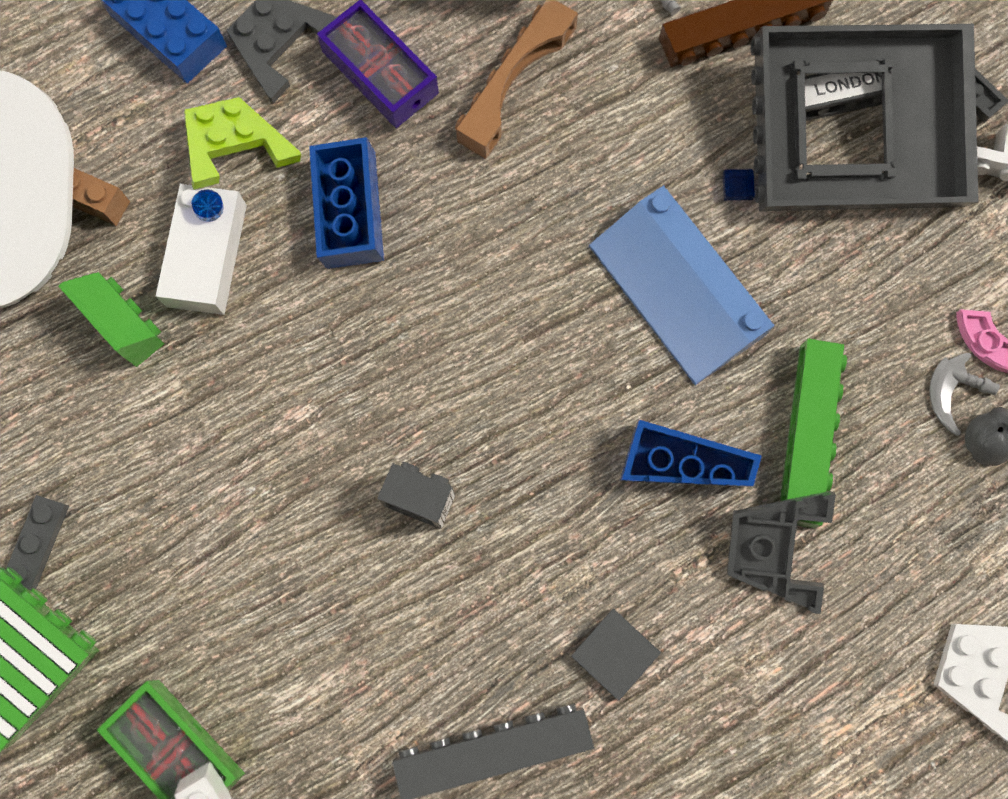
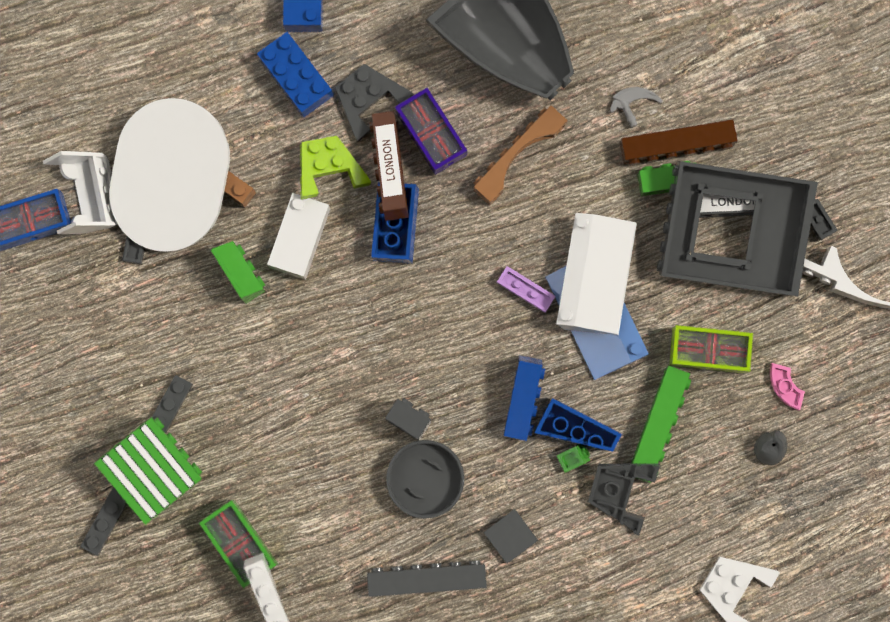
camera: 10 degrees right, 5 degrees up
(207, 205) = (308, 212): clear blue tile -> none
(322, 119) = (389, 166): none -> brick
(461, 587) = (425, 479): none -> dark grey brick
(564, 267) = (526, 289): none -> lavender plate
(594, 431) = (523, 398): none -> blue wedge
(668, 223) = (596, 274): none -> white slope
(690, 509) = (573, 457): none -> bright green bracket
(726, 77) = (655, 180): none -> bright green brick
(738, 184) = (649, 254): clear blue tile -> none
(867, 303) = (711, 349): none -> clear brick
(943, 381) = (751, 406): light grey piece -> none

